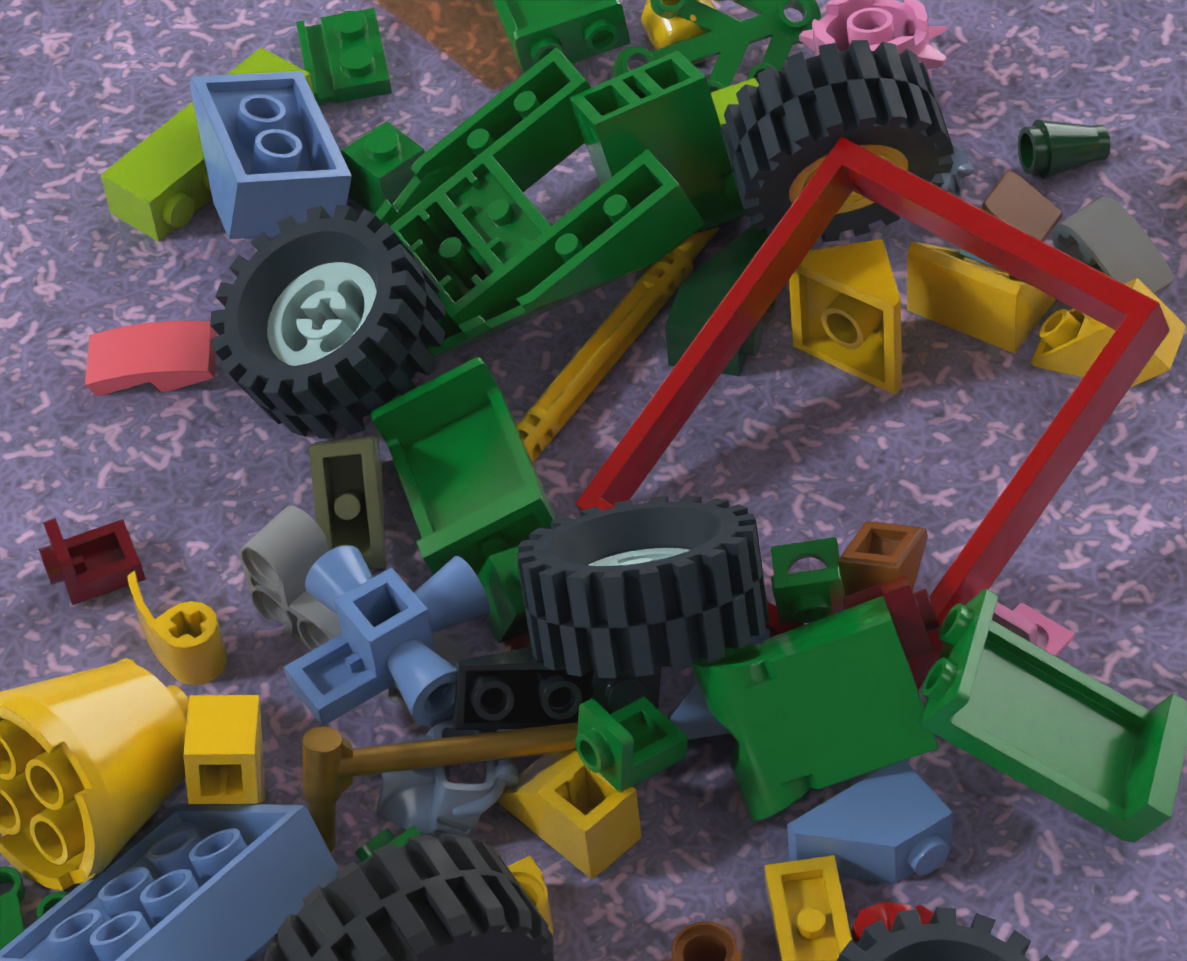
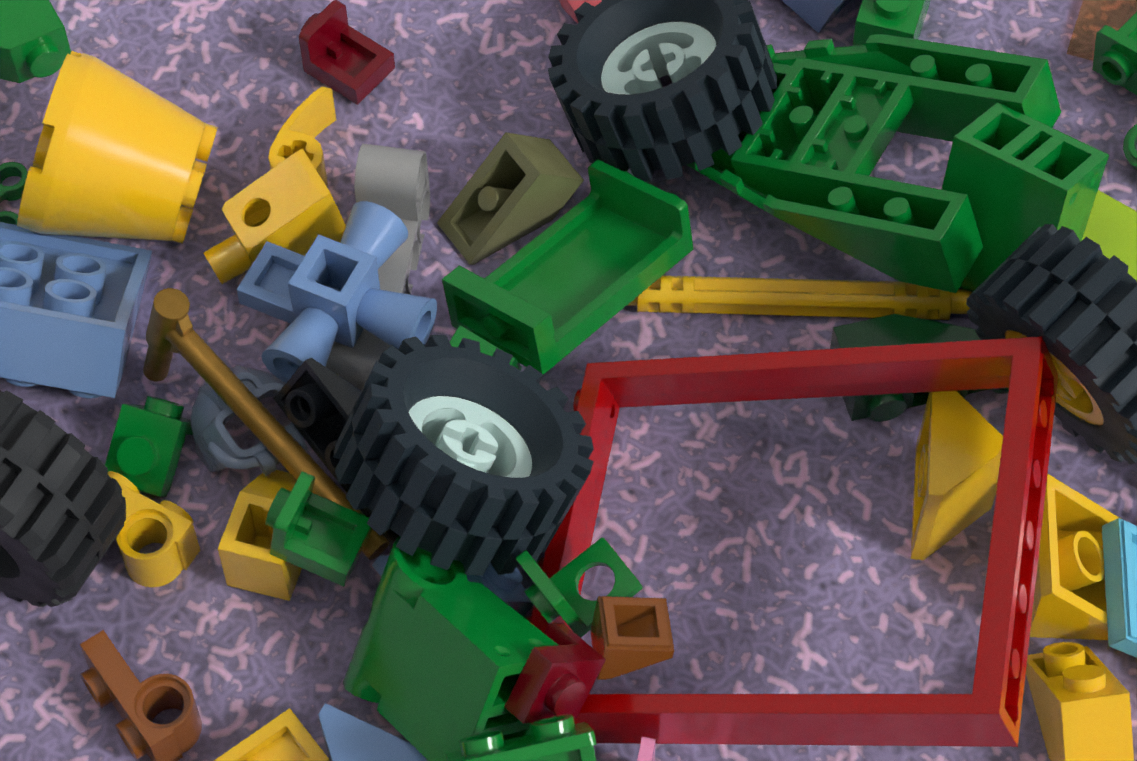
camera: 55 degrees right, 10 degrees up
(224, 750) = (160, 247): yellow slope -> none
(251, 647) = (280, 207): none -> yellow torso

